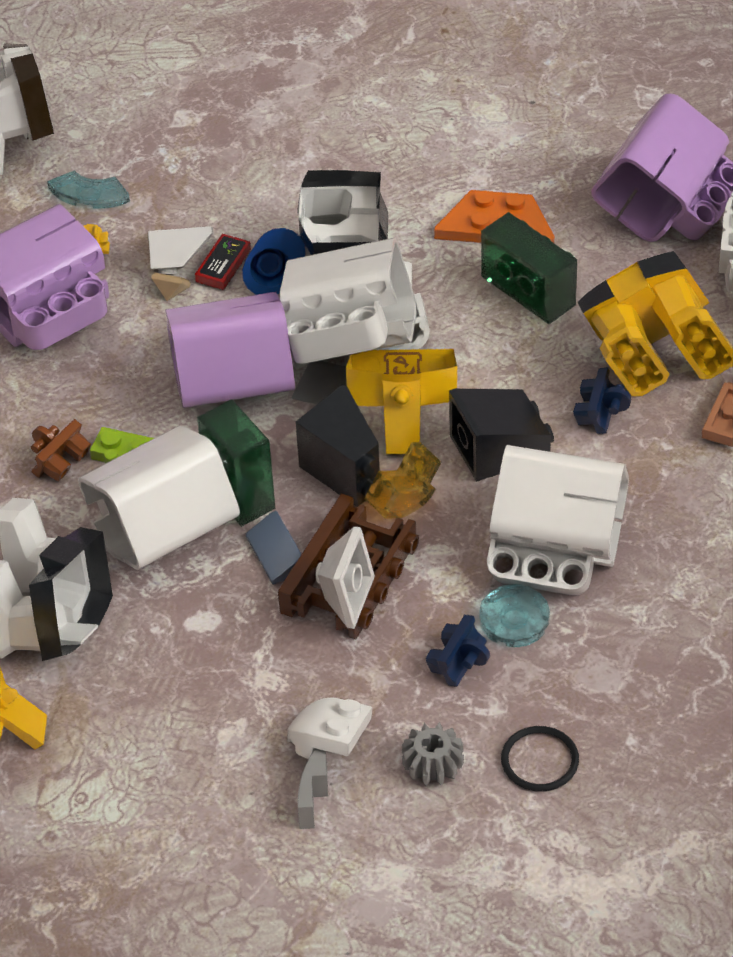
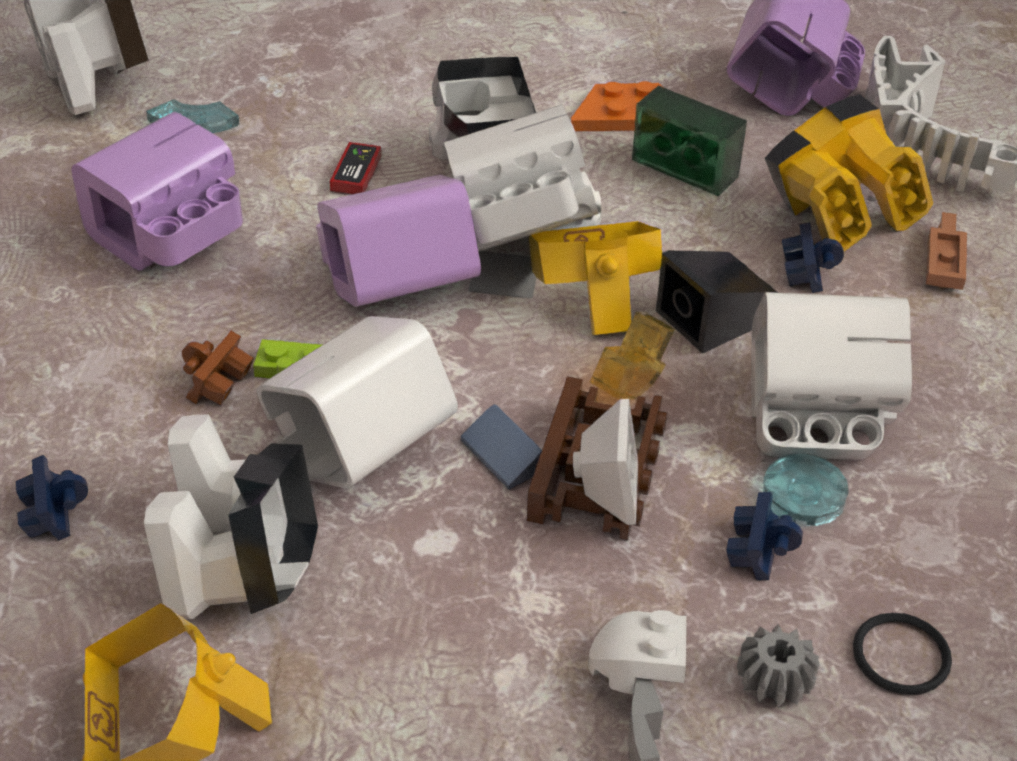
camera: 15 degrees left, 5 degrees down
(170, 285) = (305, 192): tan slope -> none
(176, 247) = (303, 154): white slope -> none
(244, 456) = (459, 339): clear green brick -> none
(267, 260) = (417, 152): blue piece -> none
(338, 445) = (550, 327): black slope -> none

